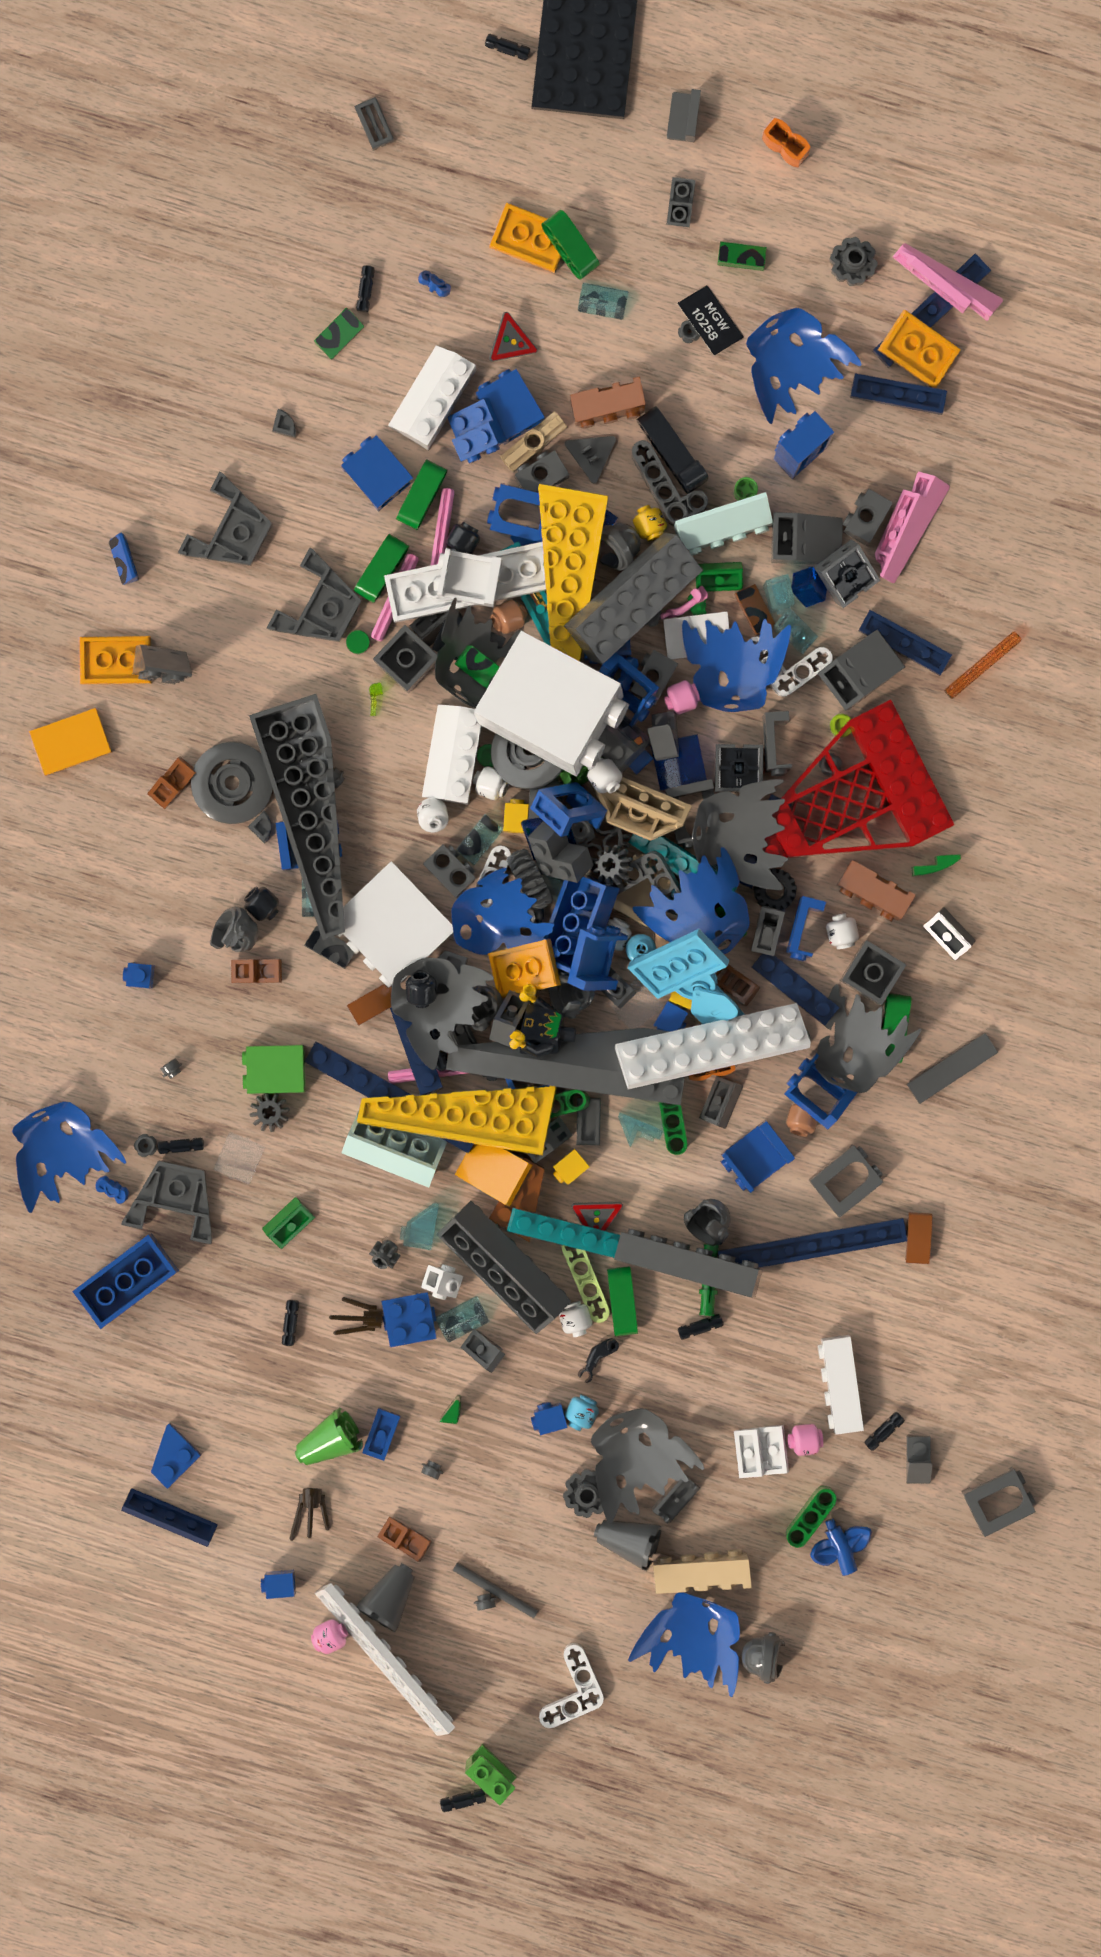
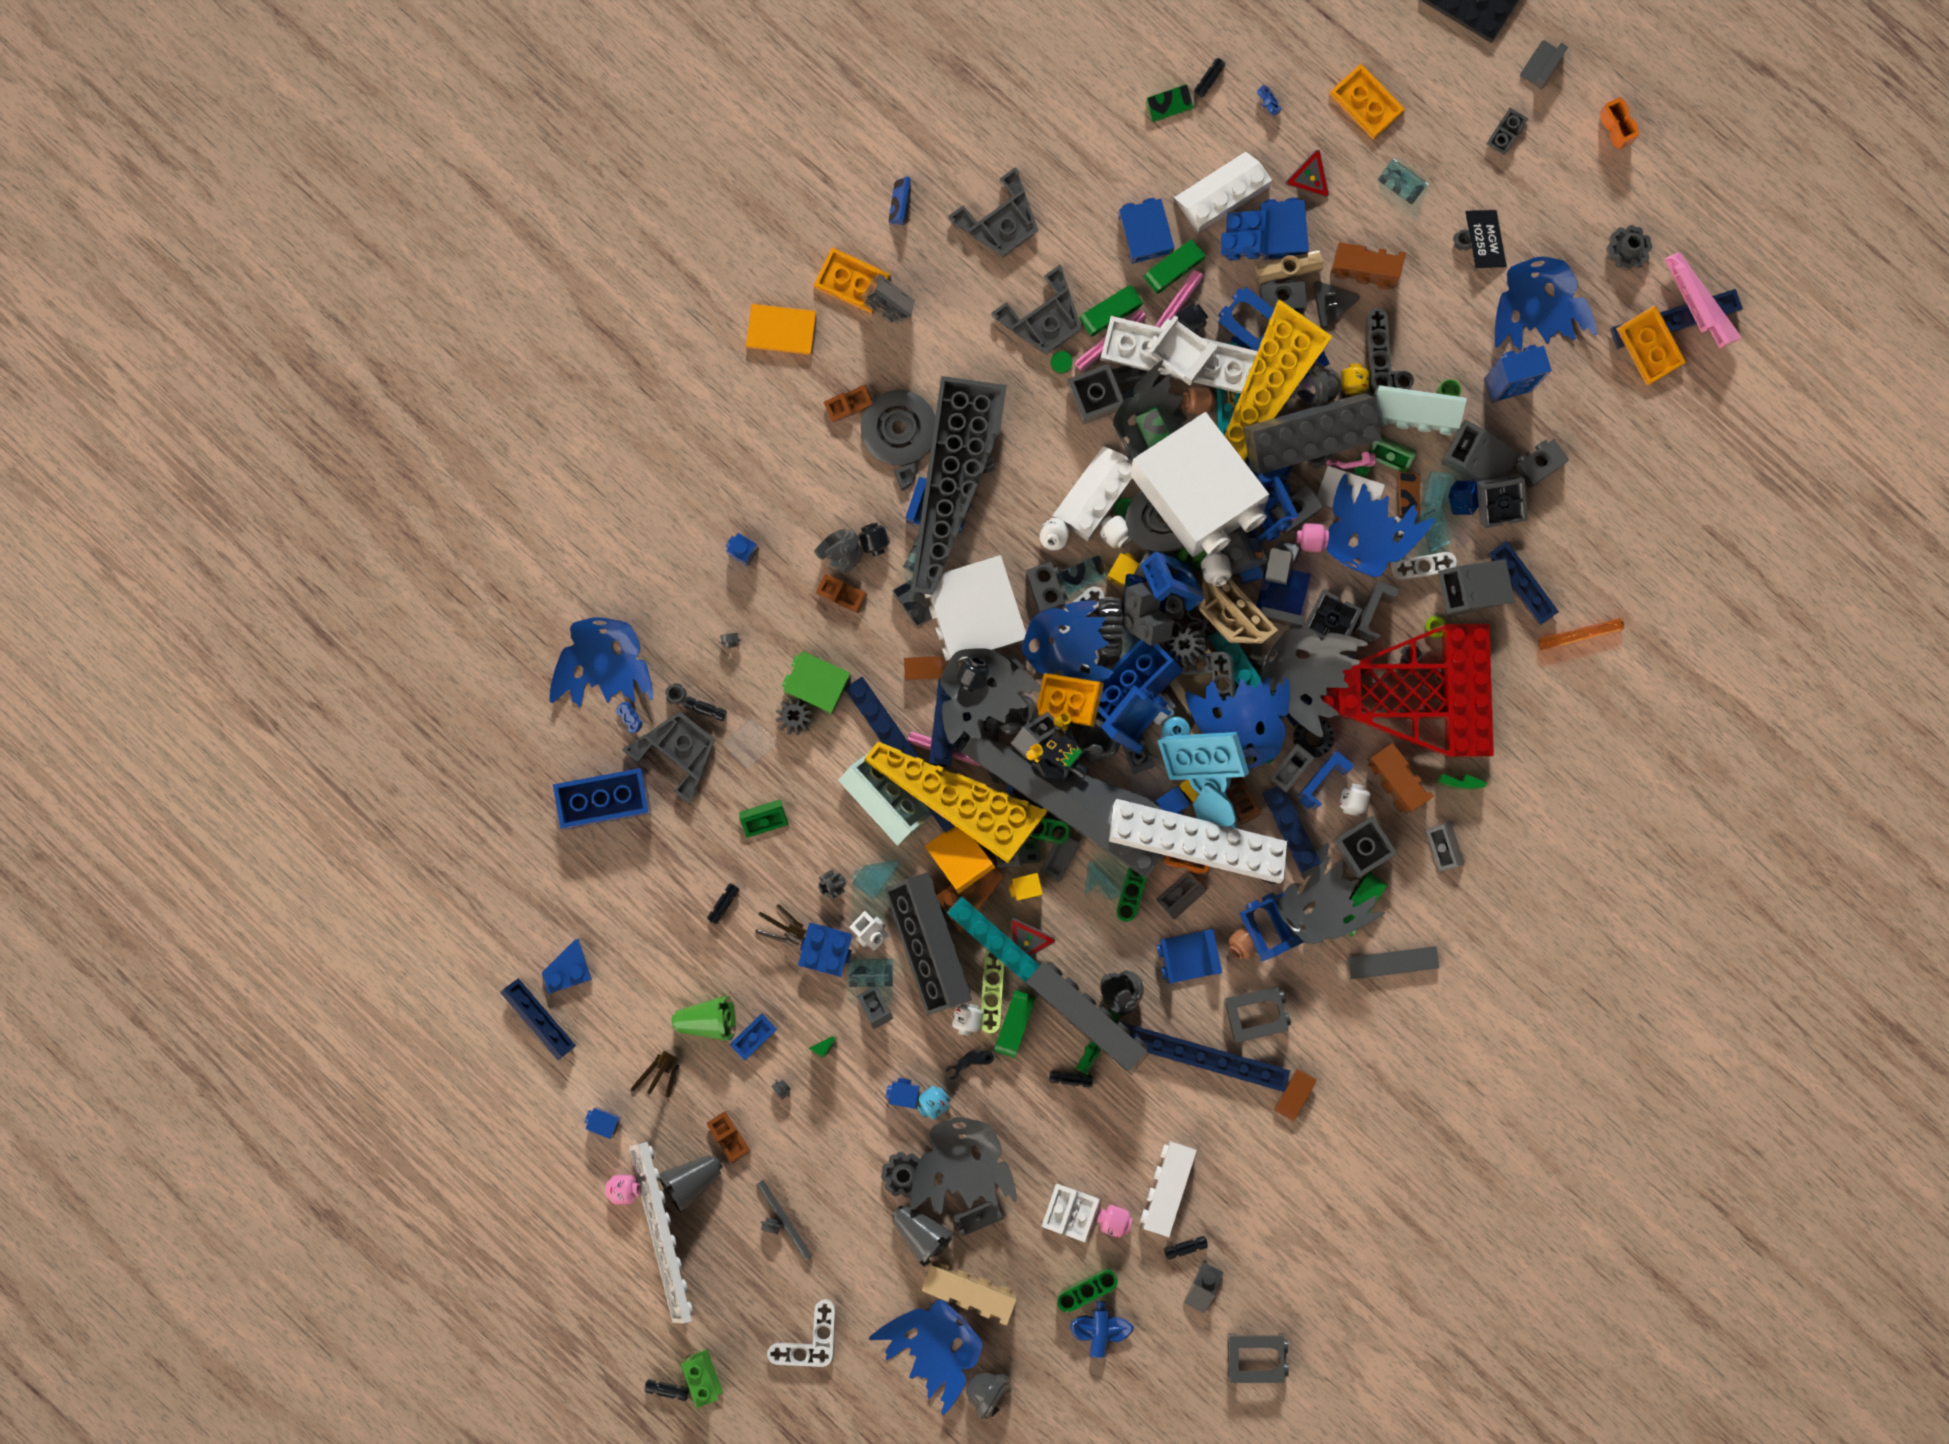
camera: 25 degrees right, 5 degrees down
(284, 424) = (1087, 155): dark grey tile -> none
(375, 690) = (1056, 408): clear neon green hand -> none
(570, 244) = (1398, 121): green beam -> none
(671, 449) = (1406, 351): black beam -> none
(741, 256) = (1536, 200): green slope -> none
(898, 394) = (1615, 374): dark blue plate -> none
(909, 523) = (1574, 485): bright pink wedge -> none

